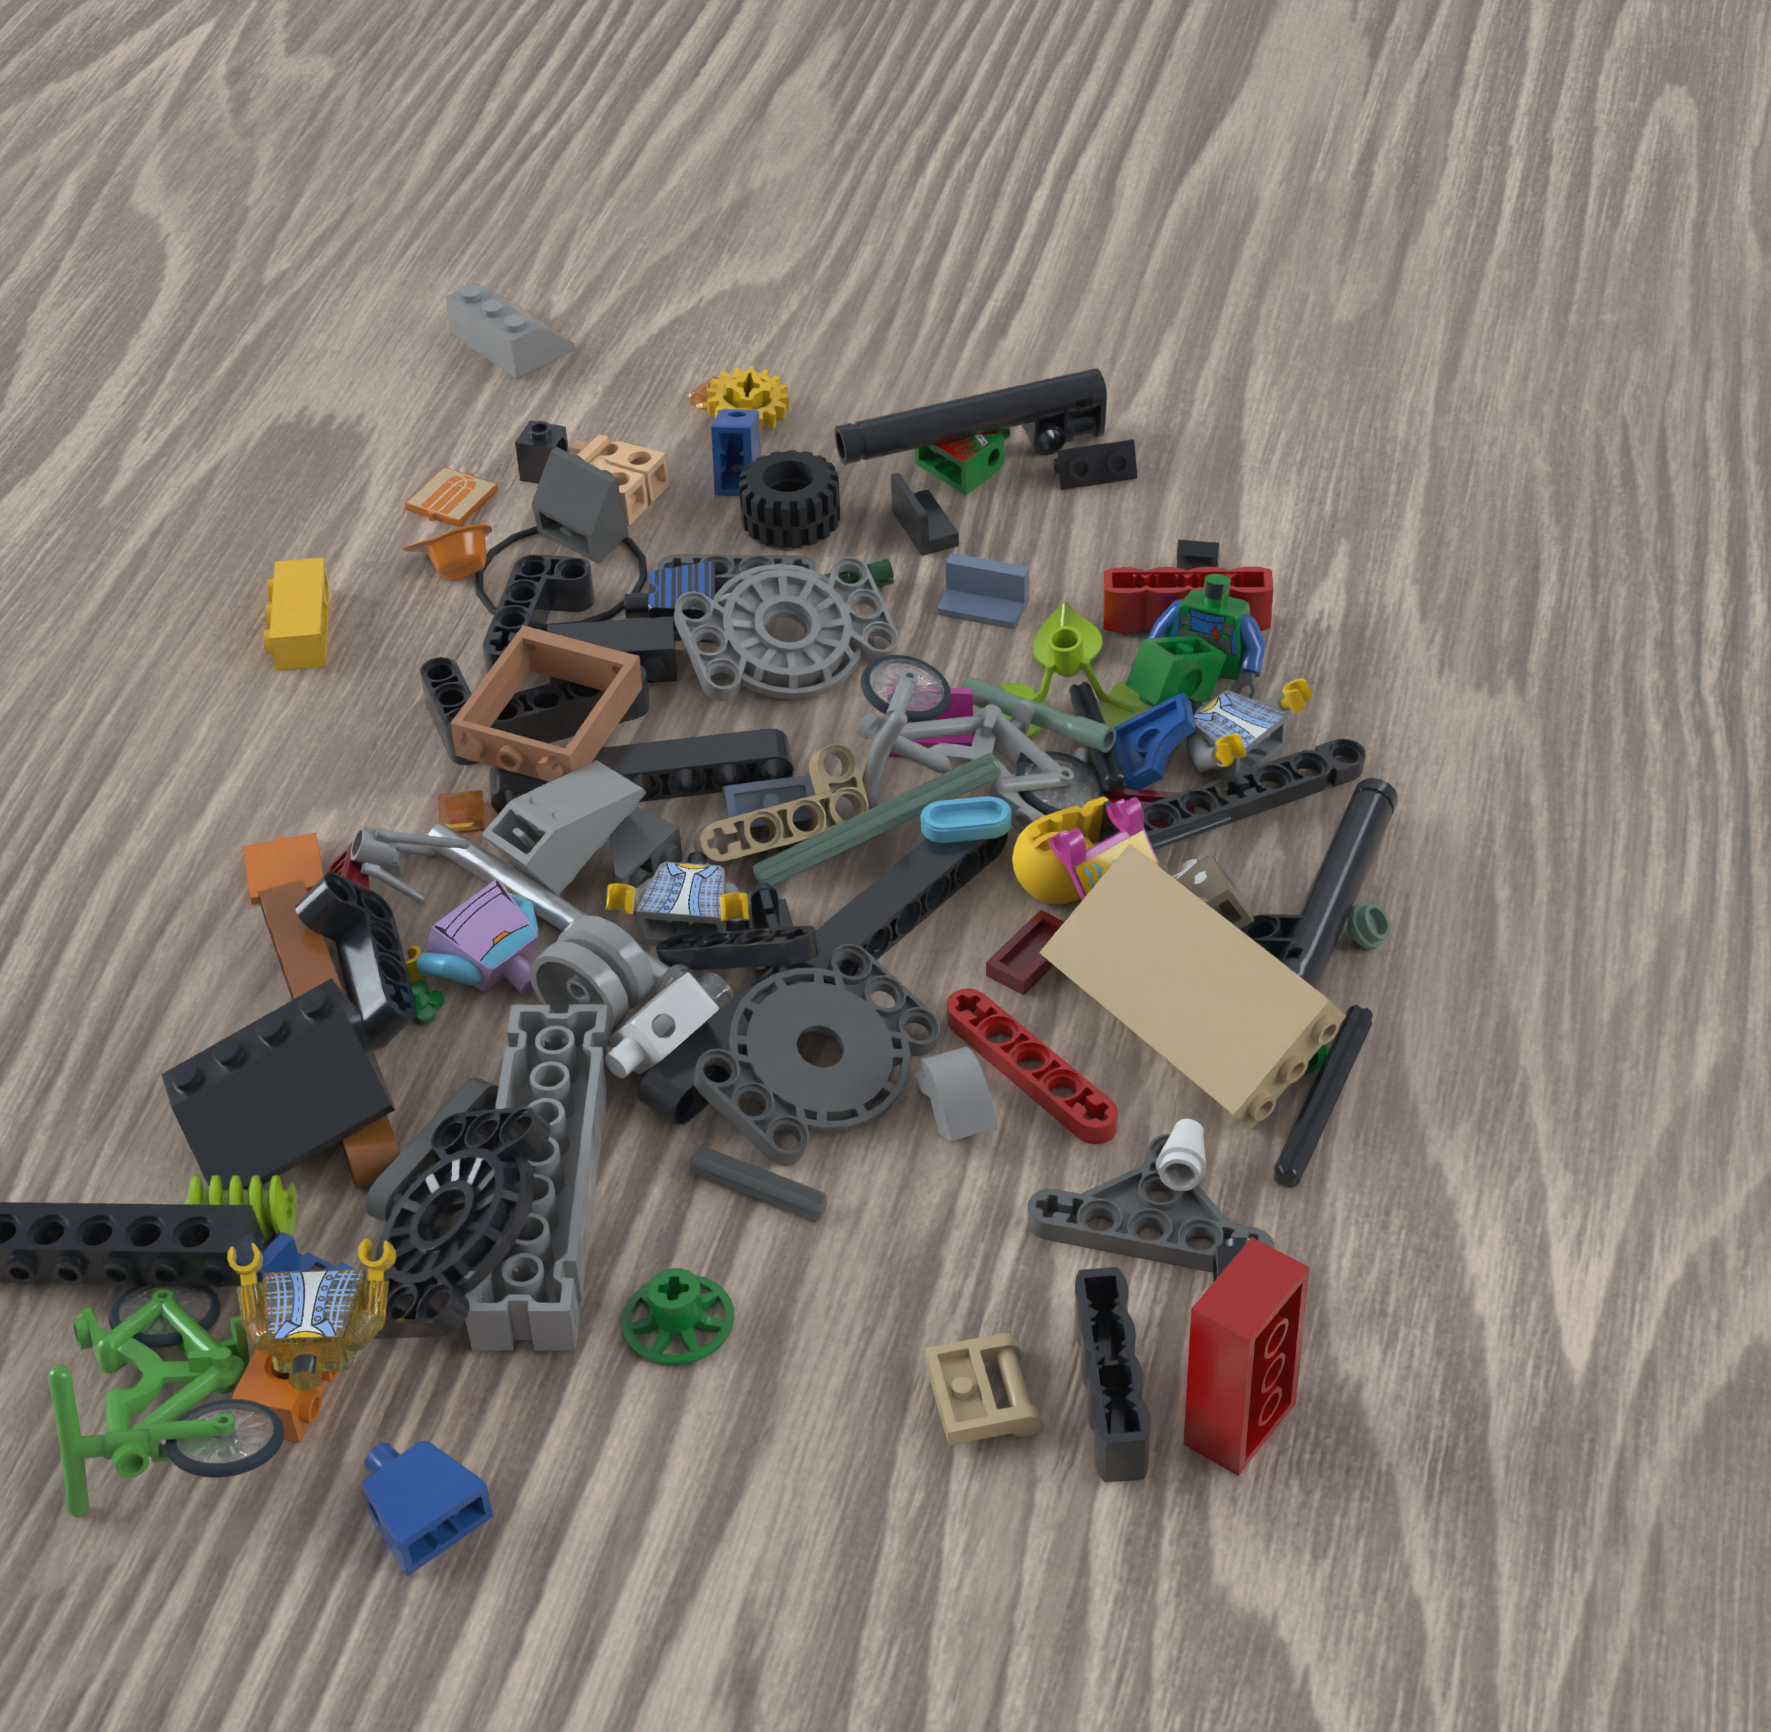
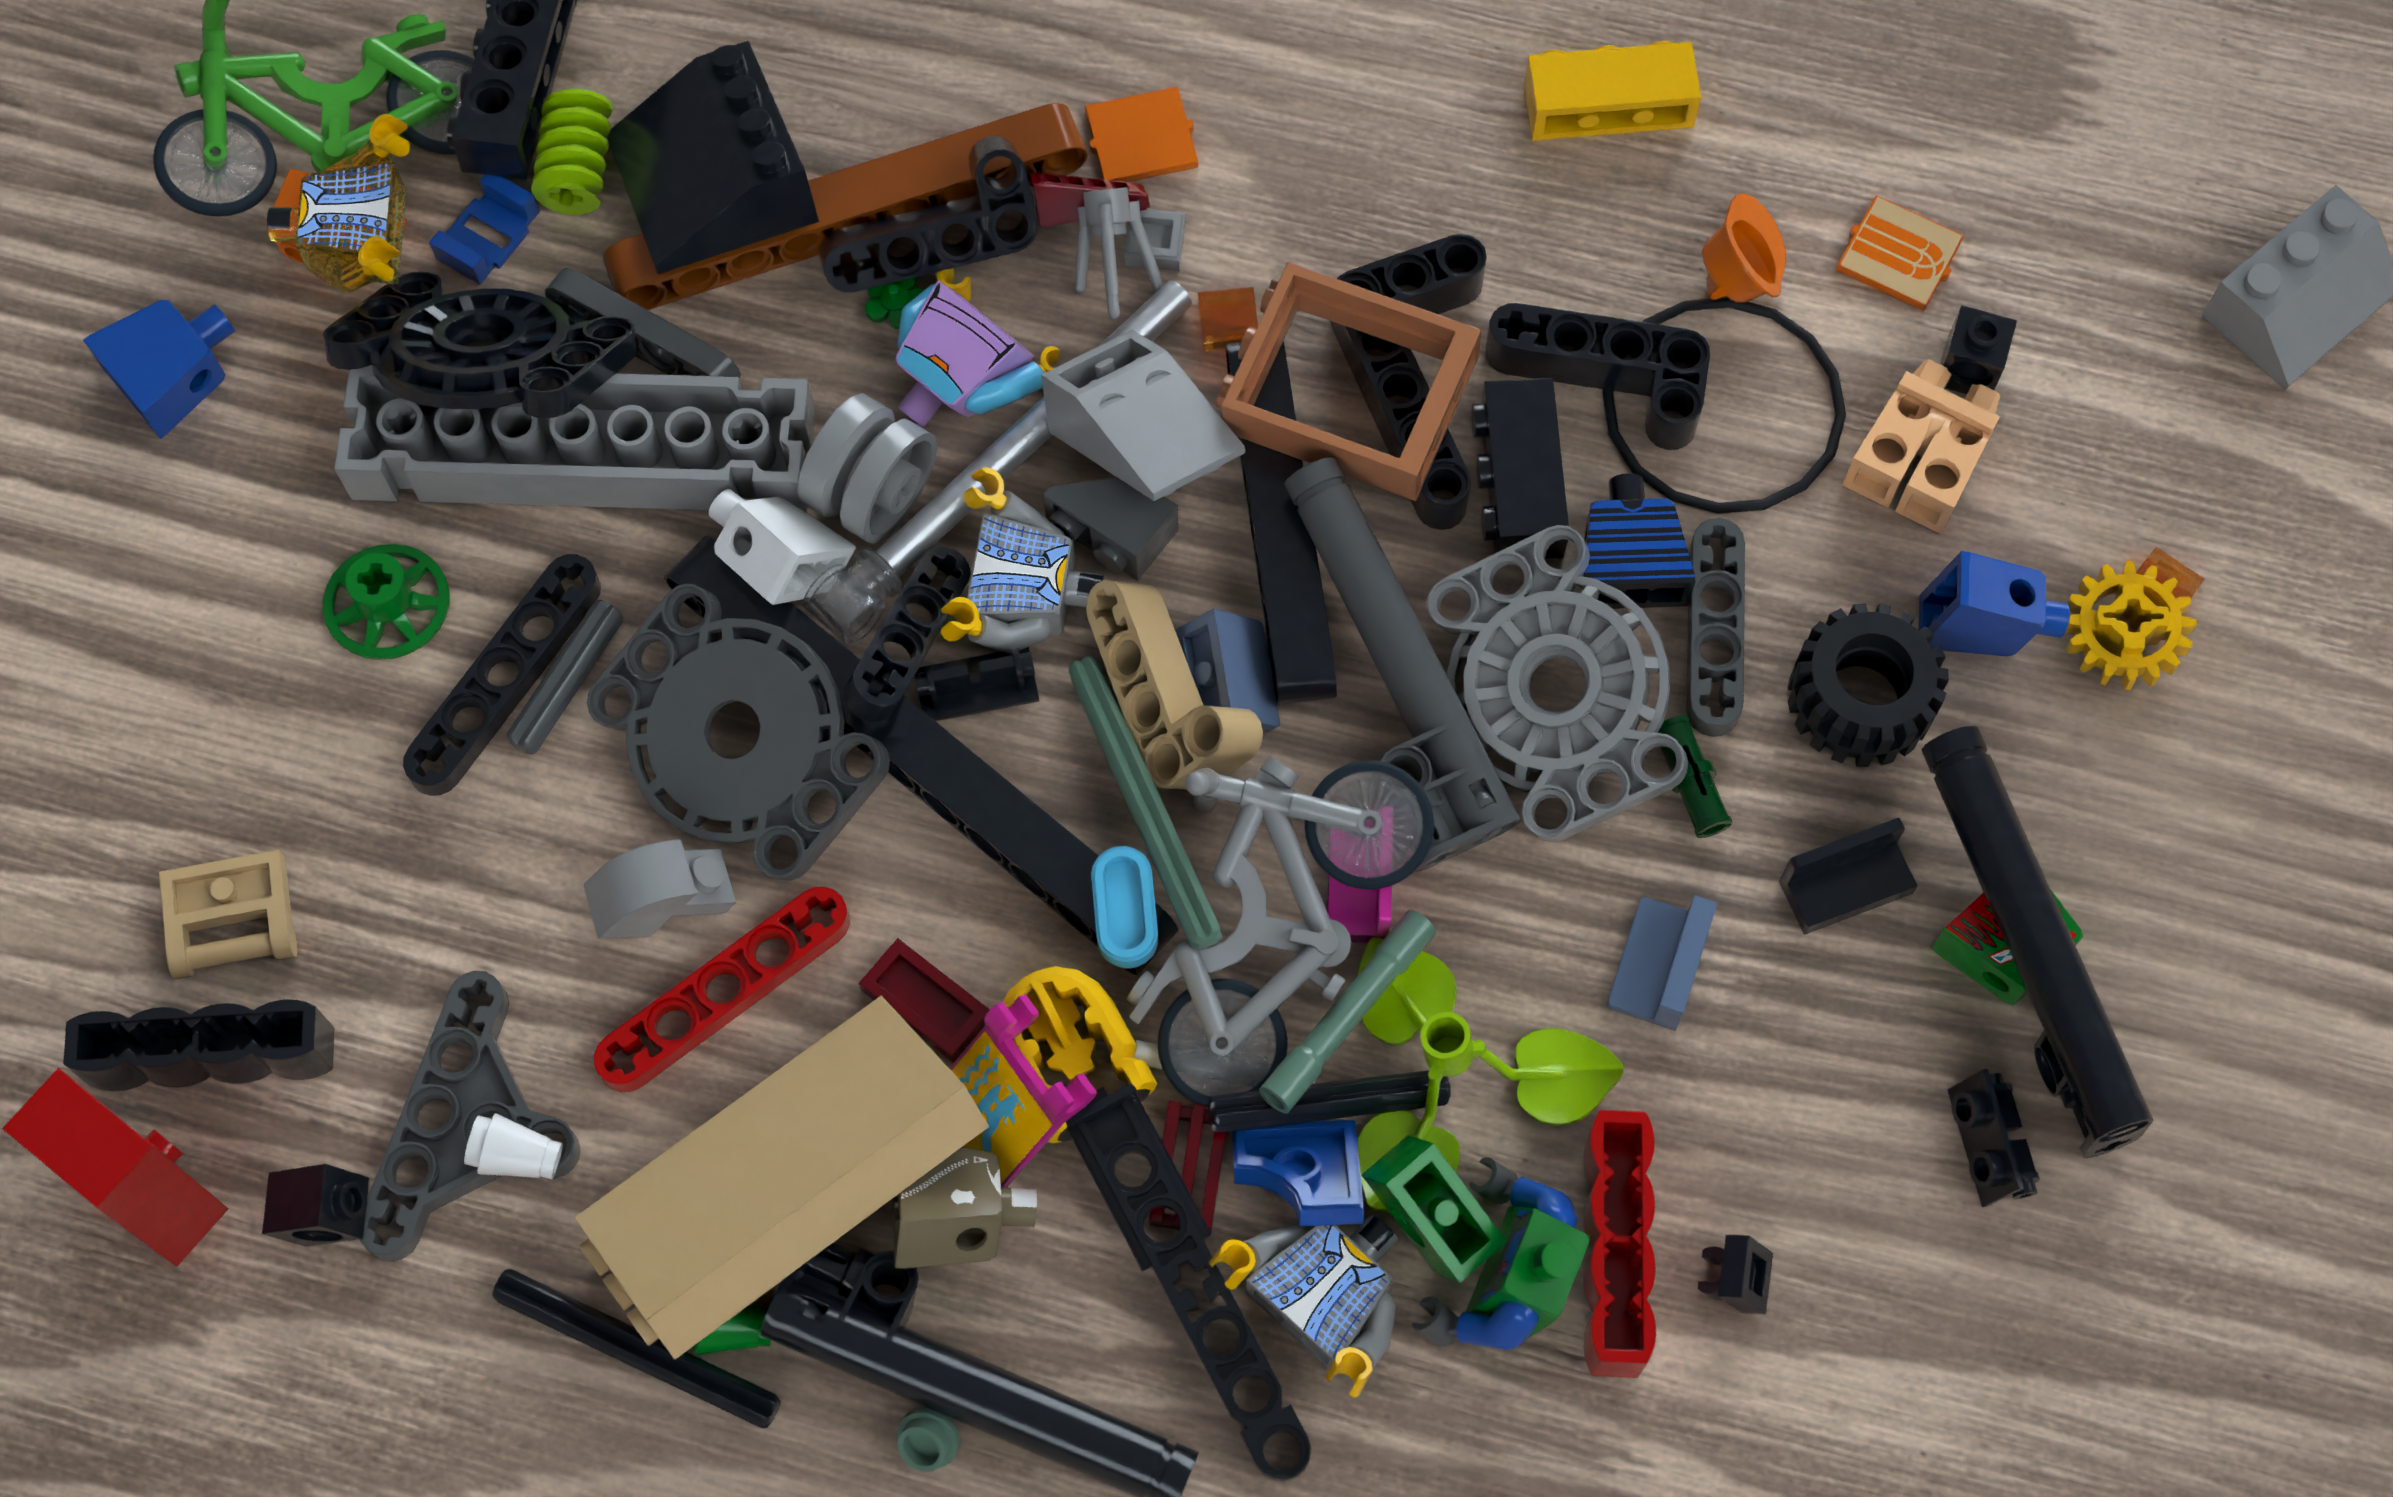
camera: 90 degrees right, 25 degrees up
(579, 506) = (1821, 405): dark grey slope -> none
(764, 1243) = (500, 701): none -> black beam
(826, 681) = (1444, 747): none -> dark grey piece

